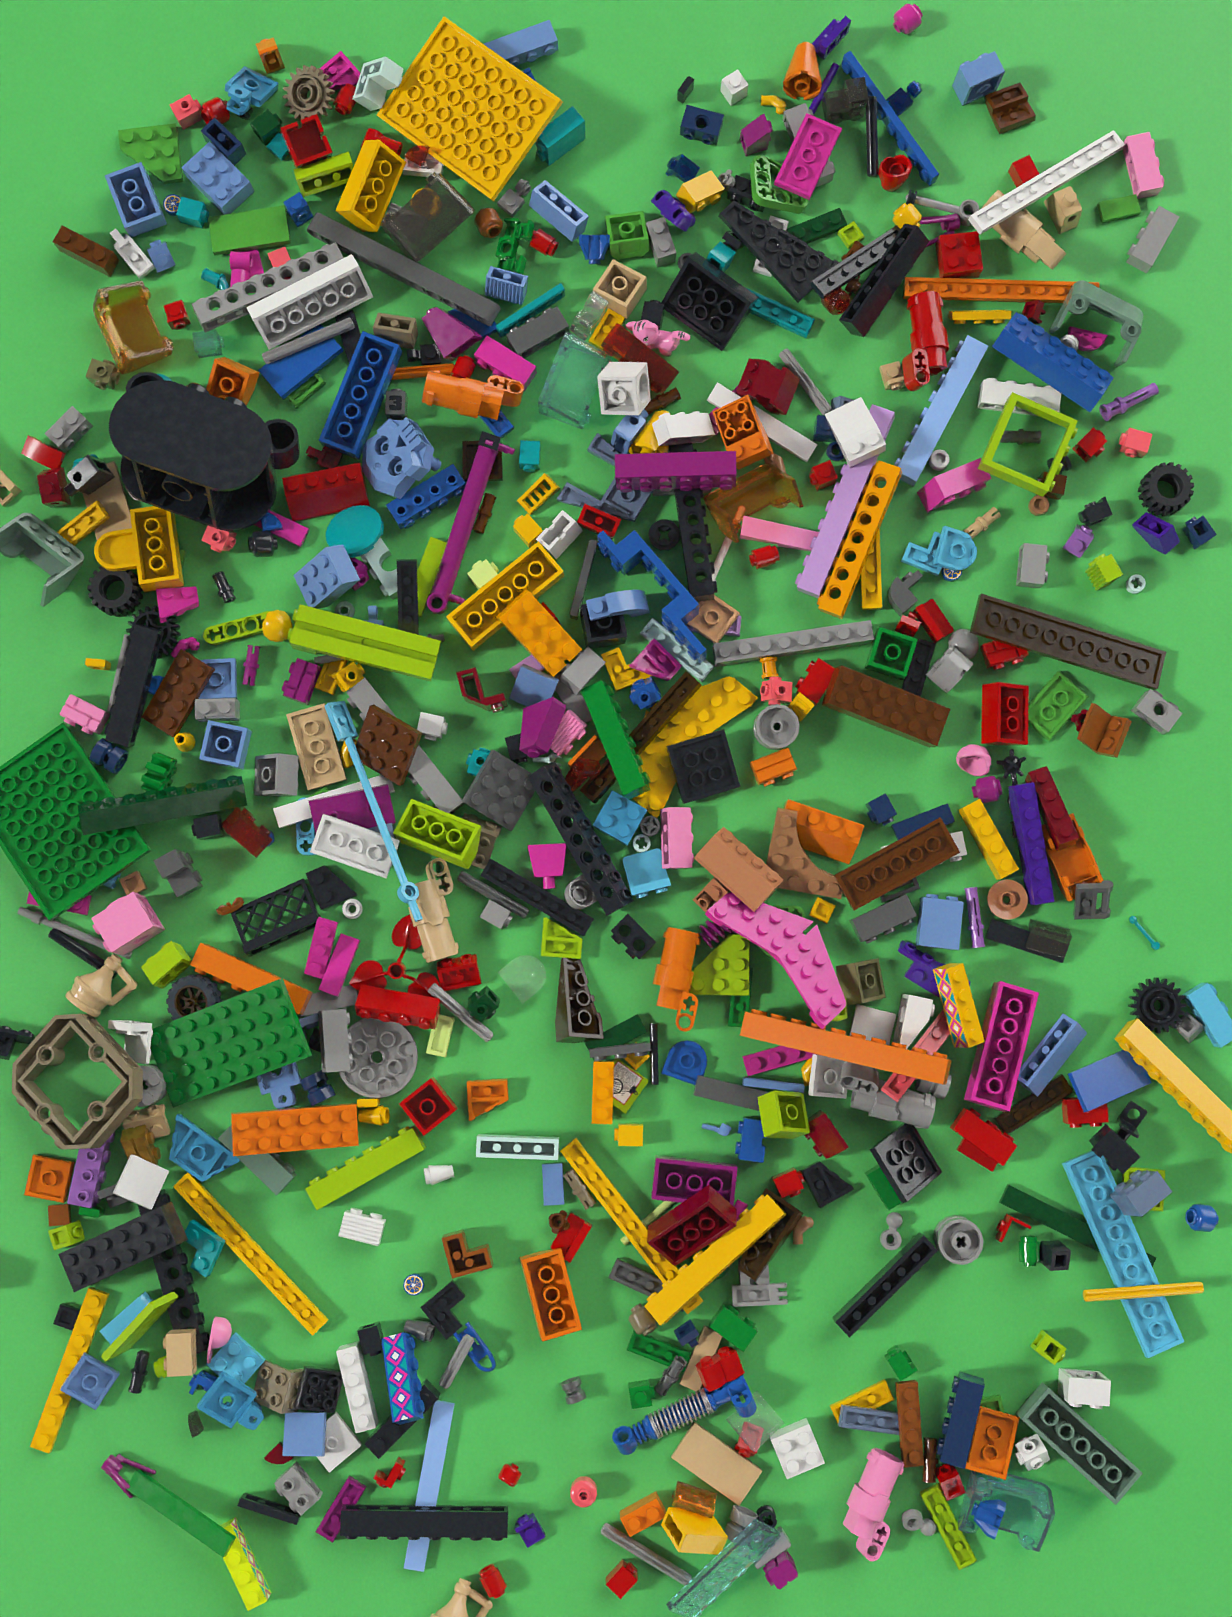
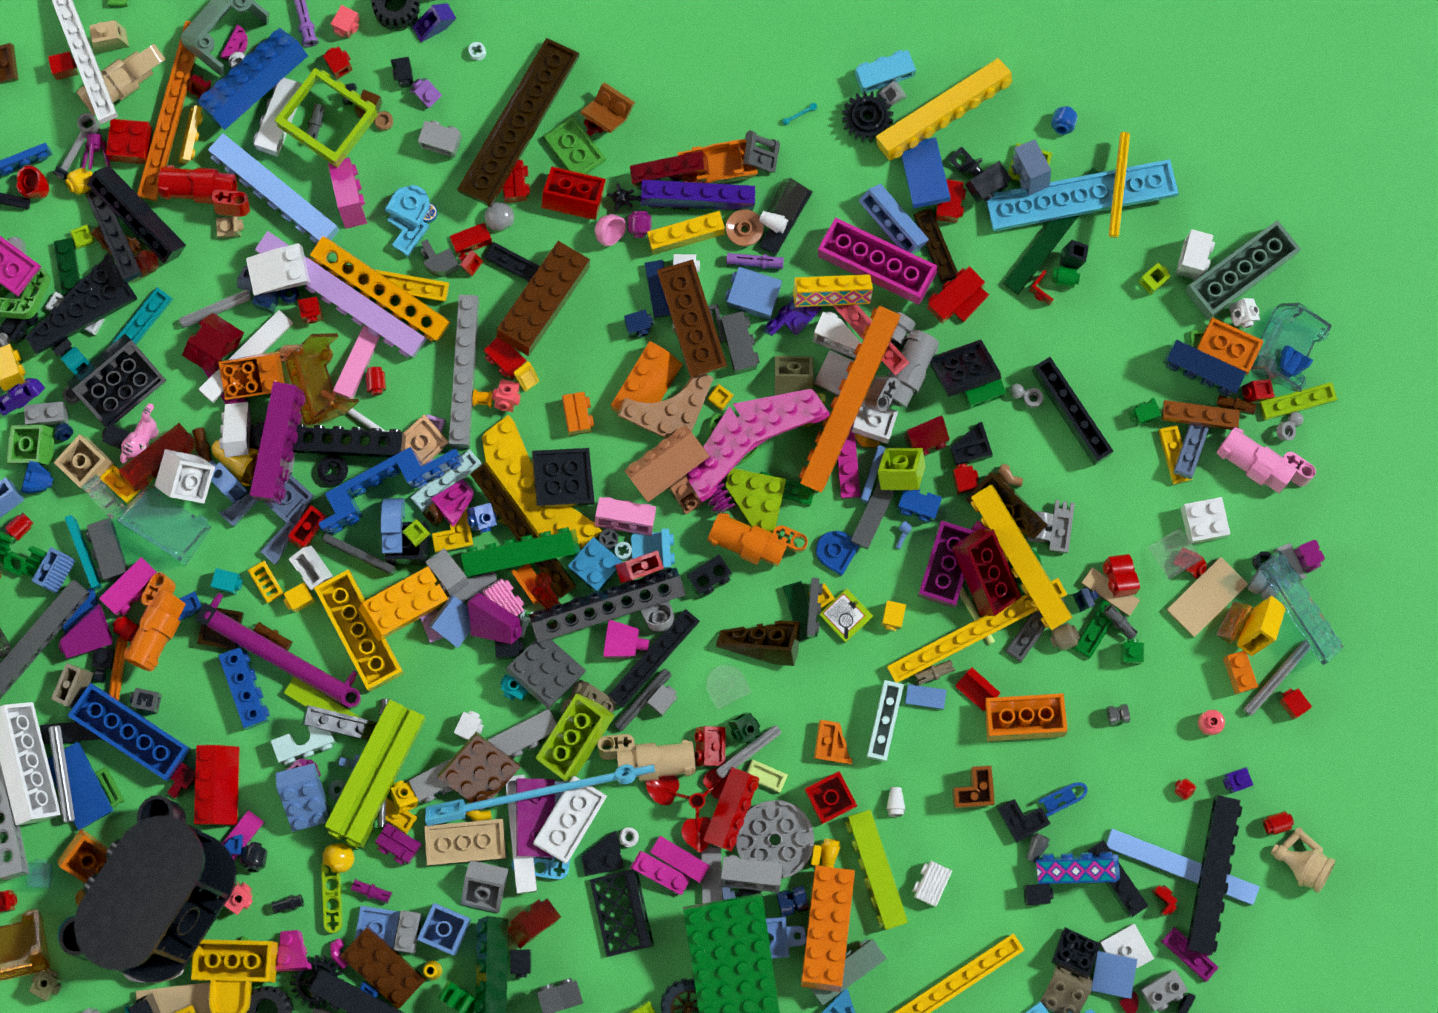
camera: 80 degrees left, 5 degrees down
(224, 910) = (601, 948): dark orange piece -> none
(243, 974) = (667, 958): orange brick -> none
(356, 529) = (259, 762): teal tile -> none
(357, 1387) = (1079, 915): white brick -> none
(406, 450) = (206, 721): medium blue brick -> none
(413, 1284) = (994, 845): blue tile -> none
(456, 1361) = (1072, 817): light grey axle -> none
(482, 573) = (332, 648): yellowish green brick -> none
(493, 703) = (461, 661): dark red piece -> none
(553, 1222) = (958, 702): reddish brown plate -> none
(559, 941) = (700, 645): lime wing -> none
(602, 1092) = (849, 631): light orange brick -> none
(613, 629) = (416, 532): none -> lime tile
(625, 863) = (639, 566): none -> red brick
(638, 644) = (433, 514): none -> reddish brown tile
(647, 262) = (63, 432): none -> dark blue plate
(654, 1054) = (823, 579): black bar -> none
(683, 1412) = (1155, 614): blue piece -> none
(733, 1326) = (1086, 556): green brick -> none
(767, 735) = (546, 393): light grey wheel -> none
(891, 653) = (494, 283): green brick -> none
(938, 460) = (319, 201): white tile -> none
(949, 669) = (521, 233): light grey brick -> none
(970, 1239) = (1054, 340): light grey wheel -> none
(982, 523) = (388, 174): tan pin -> none
(1020, 929) = (774, 221): none -> white cone
(1103, 571) = (460, 76): lime brick -> none
(1145, 710) = (595, 68): light grey brick -> none

